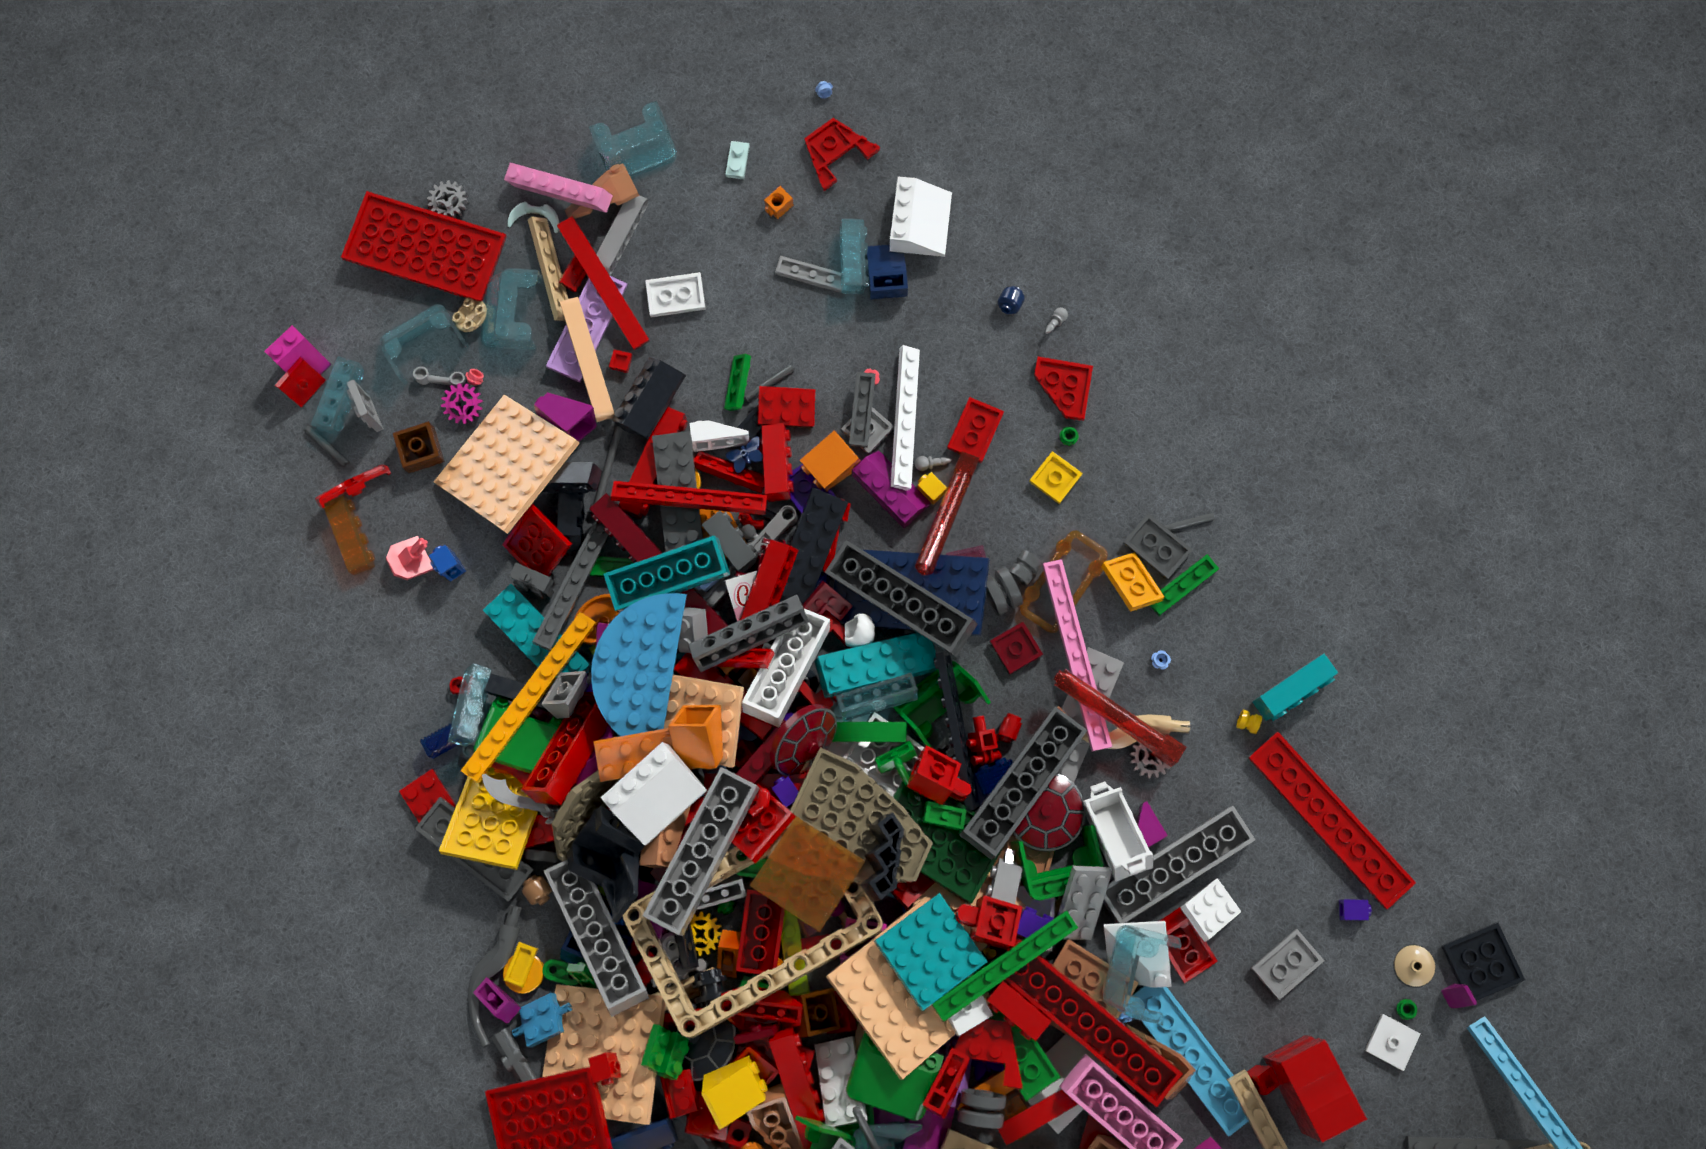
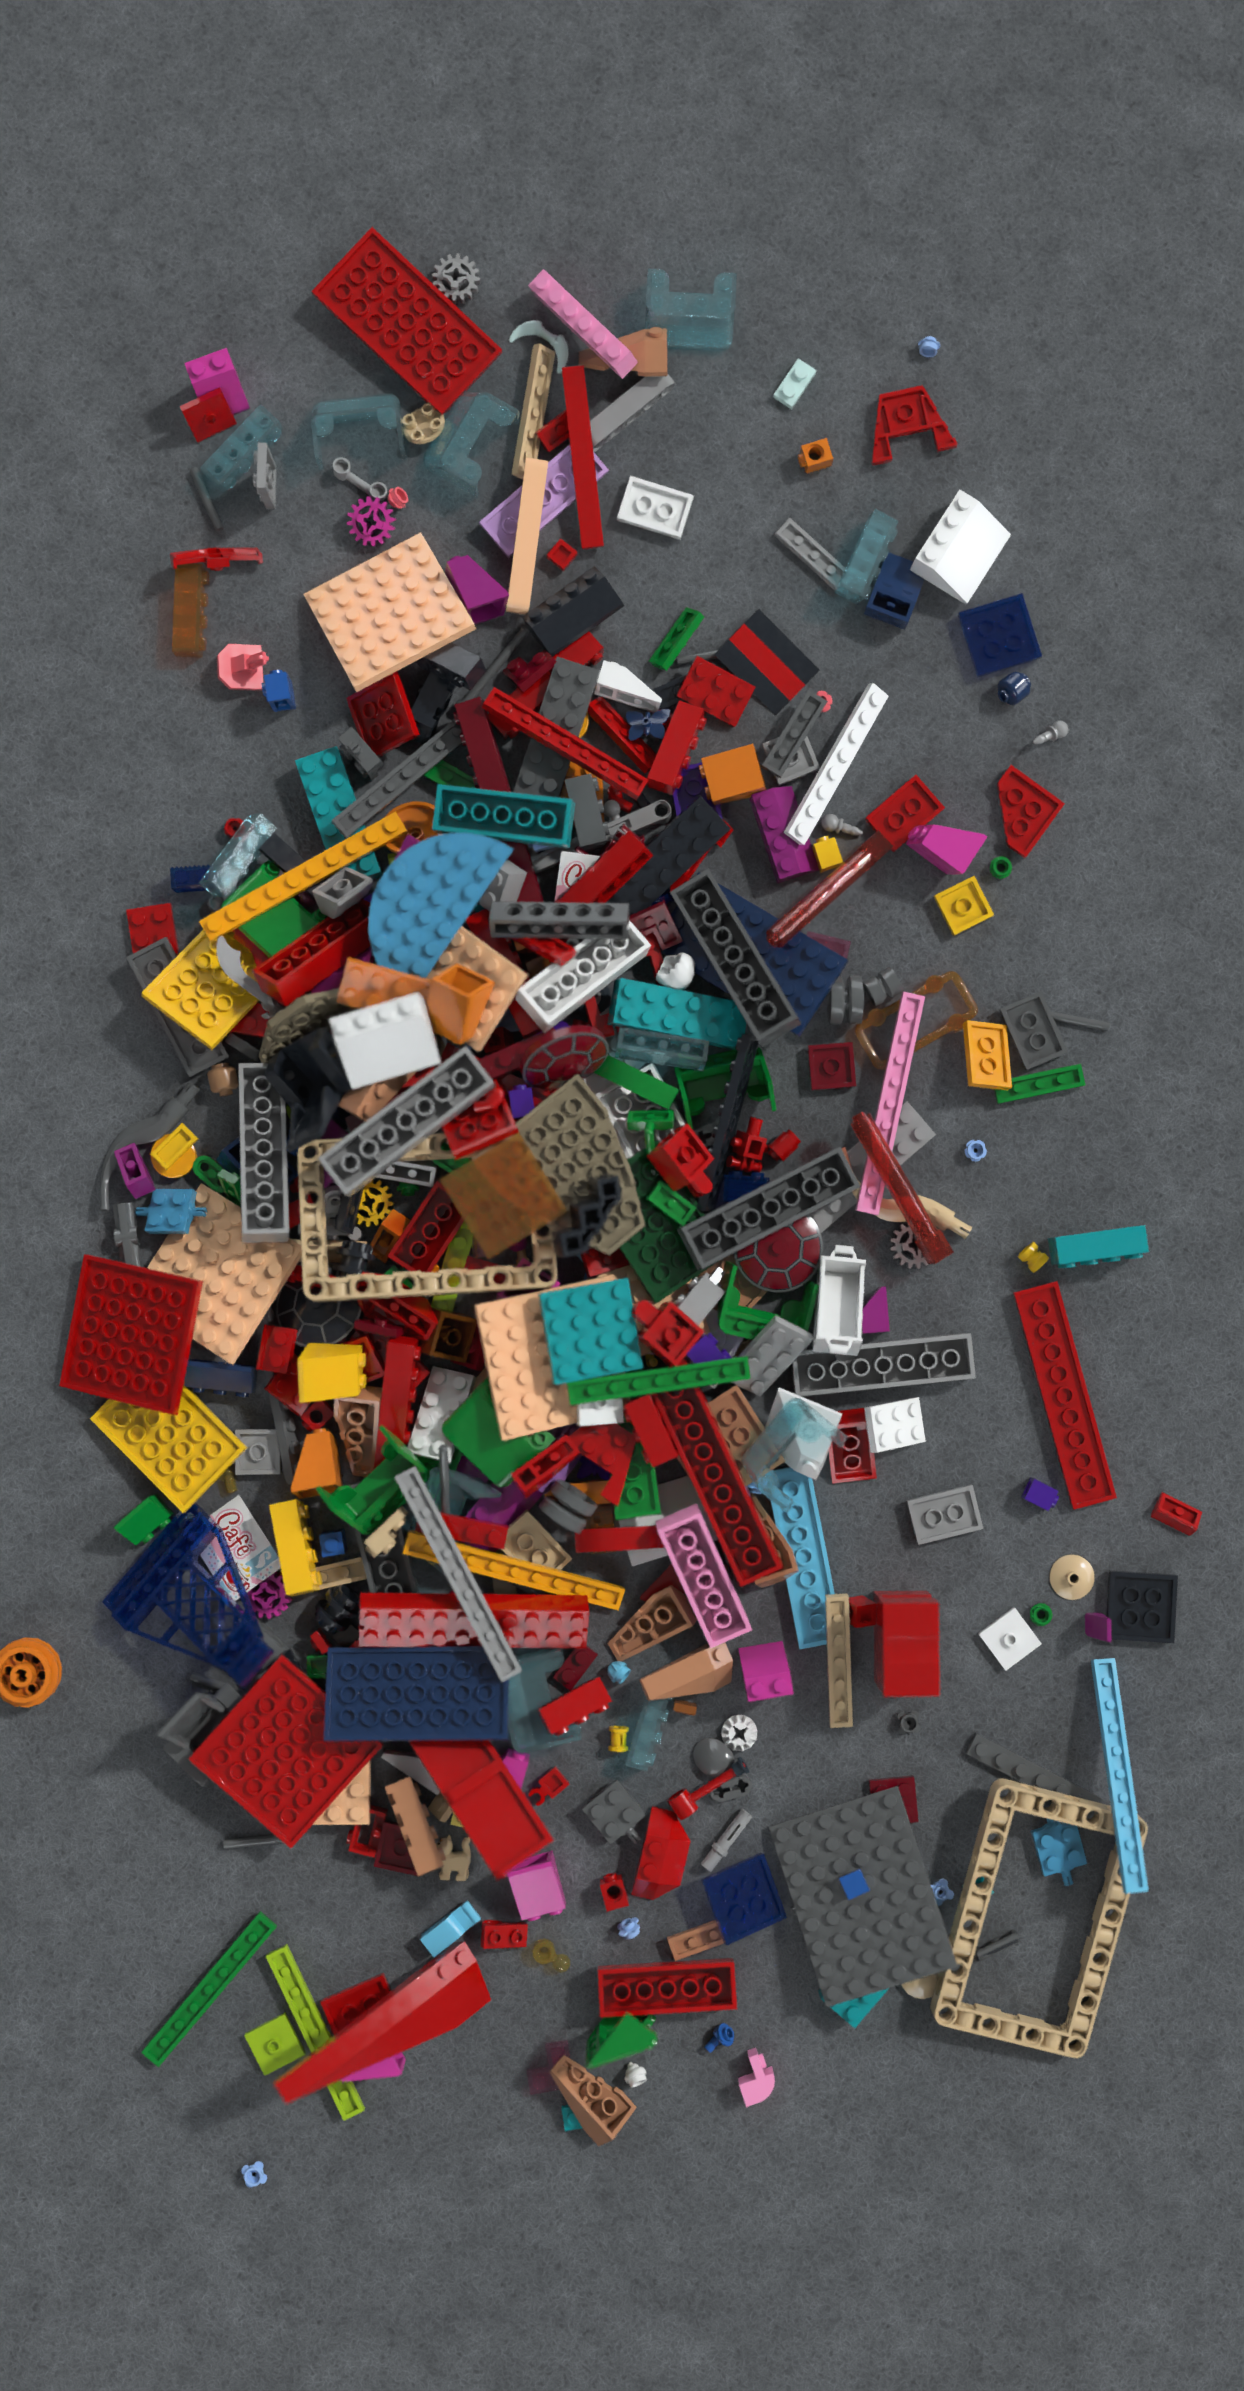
camera: 20 degrees right, 10 degrees up
(418, 447) = (303, 548): reddish brown brick -> none
(605, 1068) = (213, 1289): red brick -> none
(634, 461) = (525, 674): none -> dark red plate
(665, 1052) = (280, 1302): green plate -> none
(815, 366) = (767, 661): none -> black sticker
(980, 267) = (999, 635): none -> clear blue plate
(1020, 439) = (946, 847): none -> dark pink slope
(1469, 873) = (1176, 1514): none -> red slope

